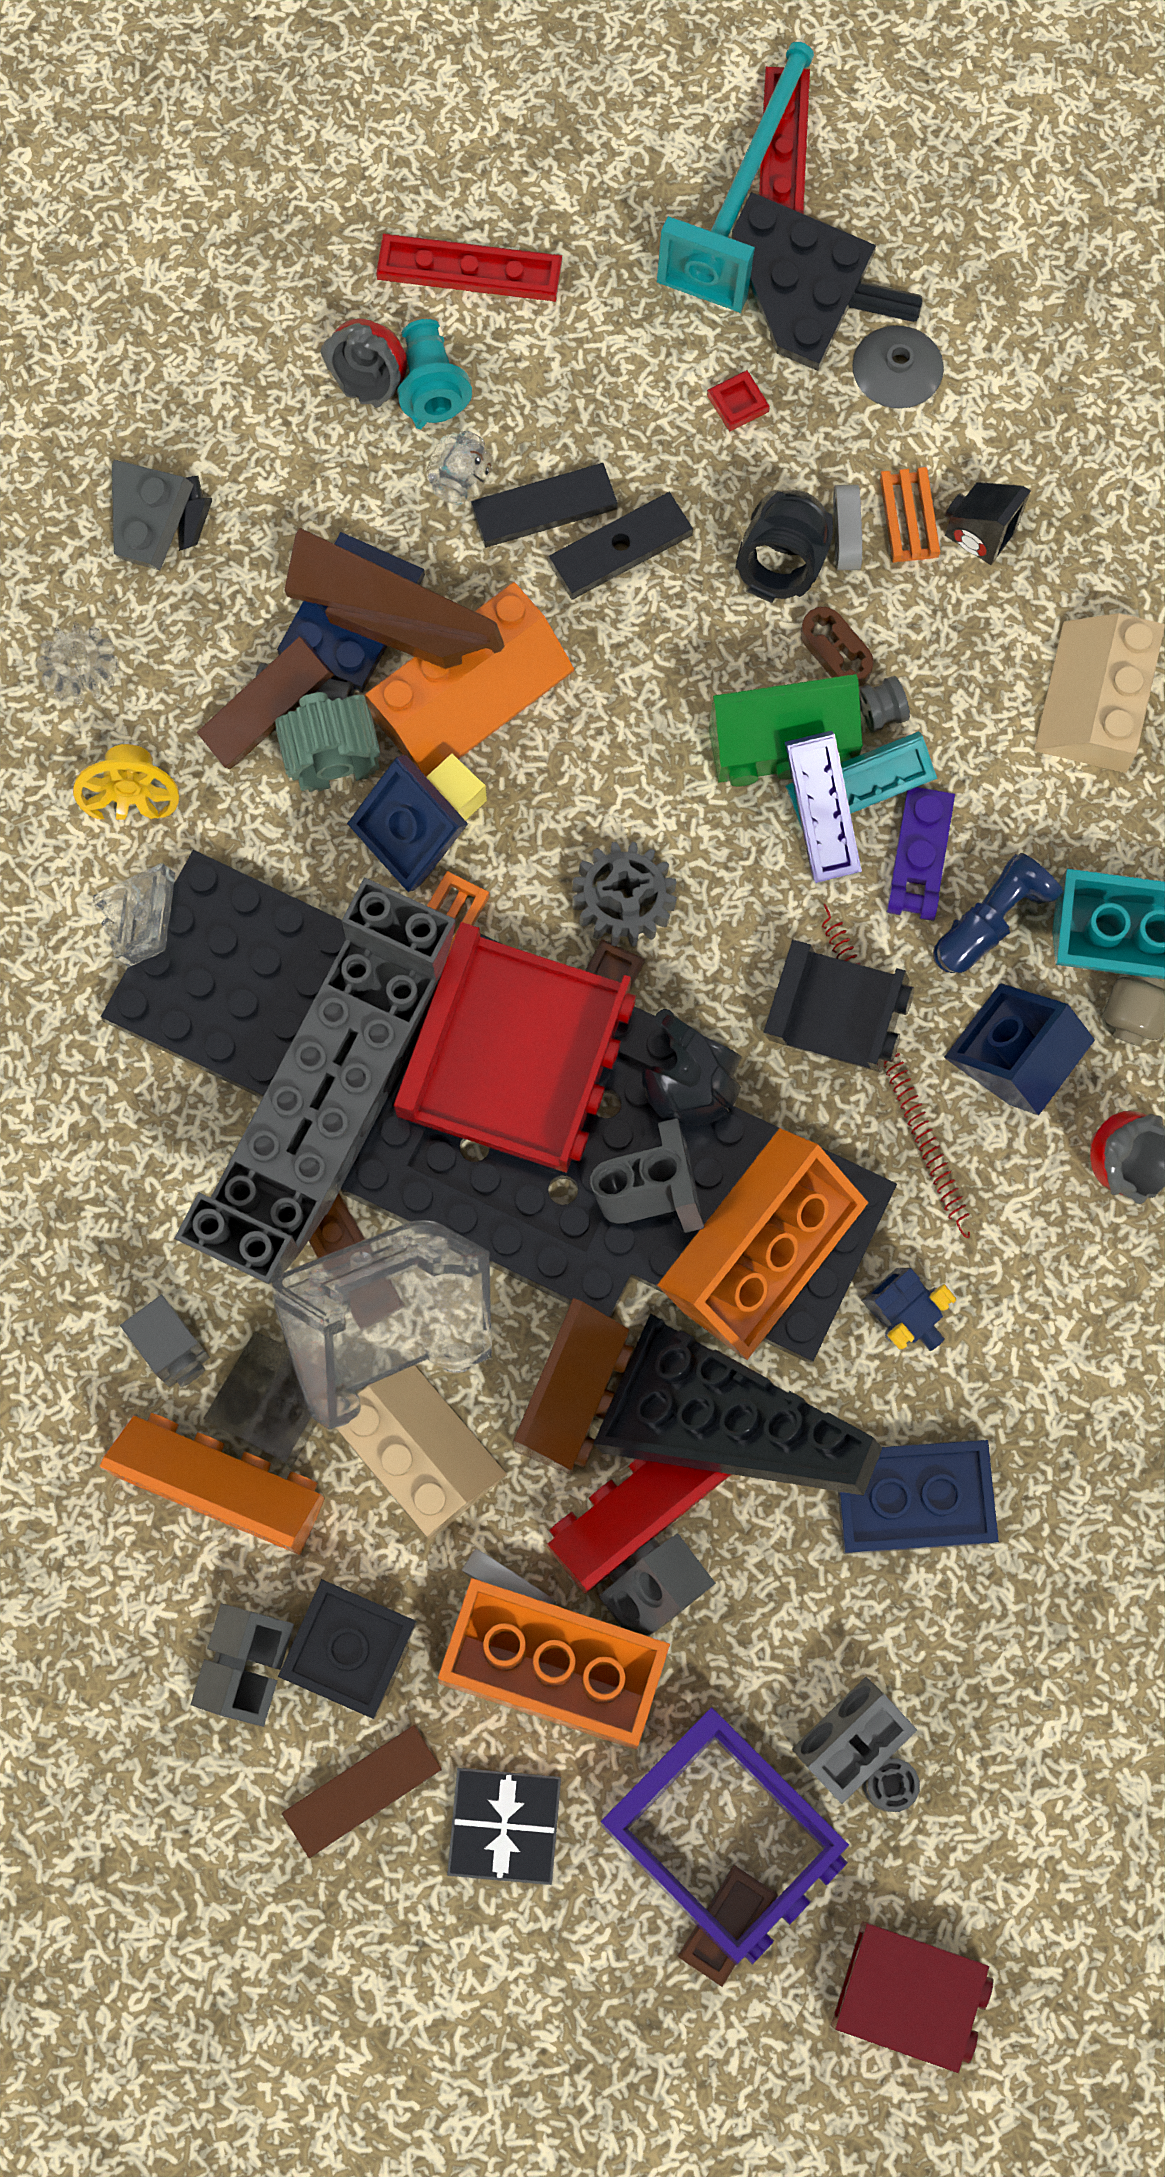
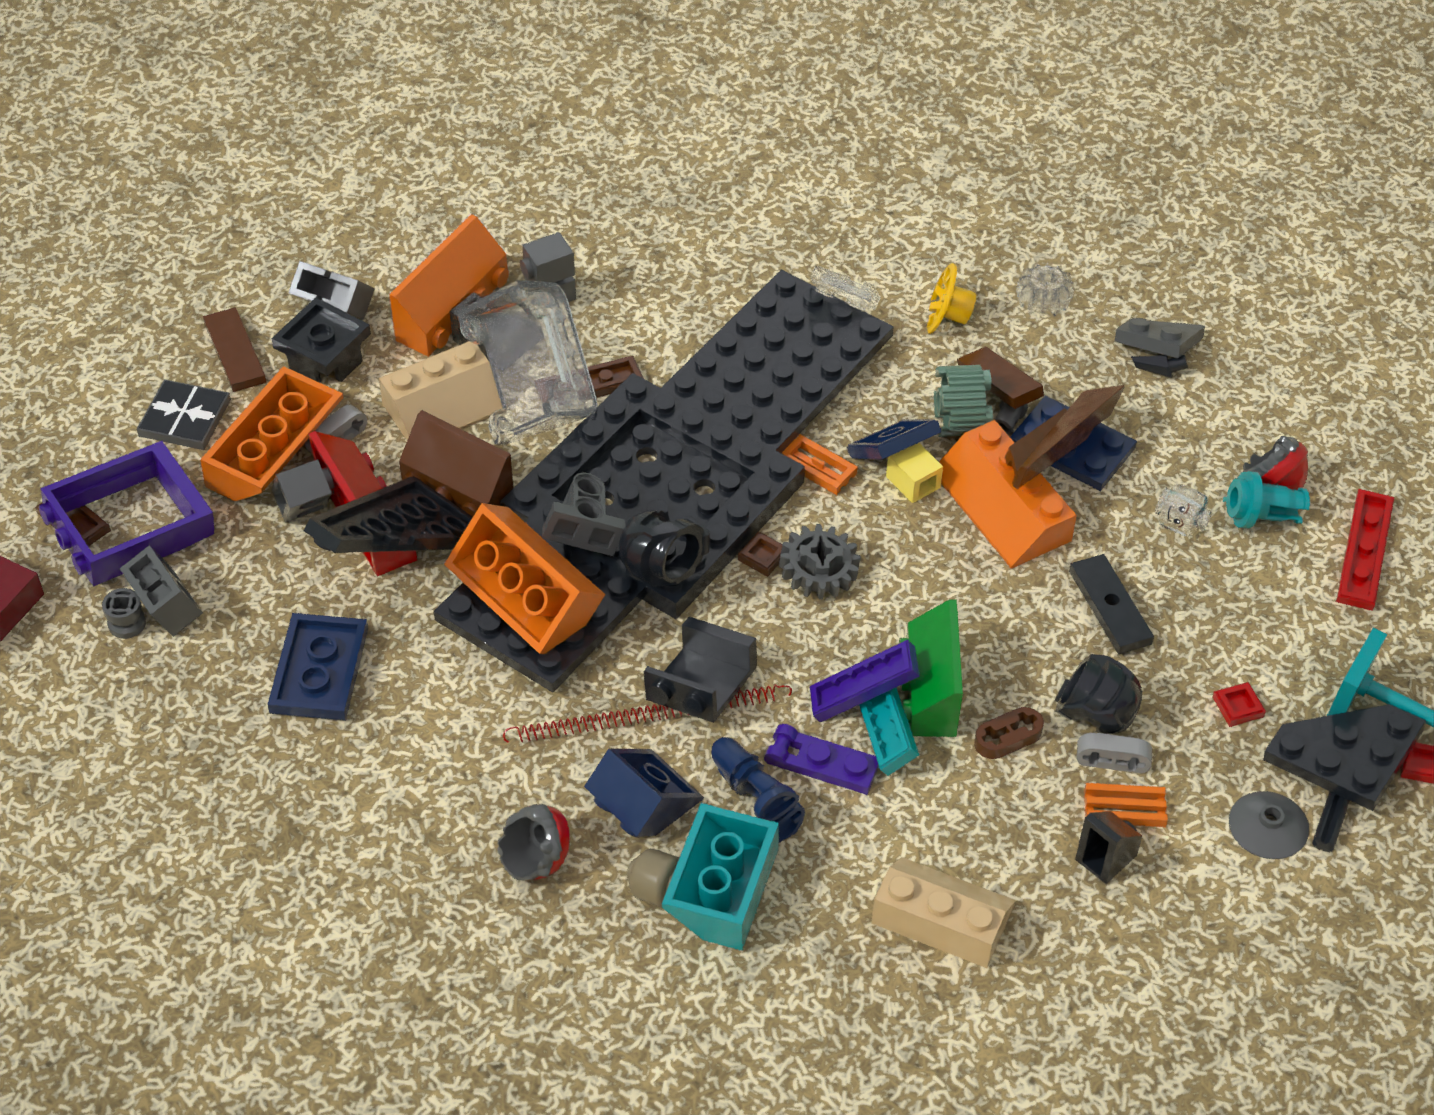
camera: 100 degrees right, 25 degrees down
(326, 1087) = (676, 342): dark grey slope -> none
(514, 1051) = (707, 461): red panel -> none
(544, 505) = (1152, 566): black tile -> none
(884, 703) = (952, 749): dark grey wheel -> none
(909, 1308) = (456, 680): dark blue piece -> none

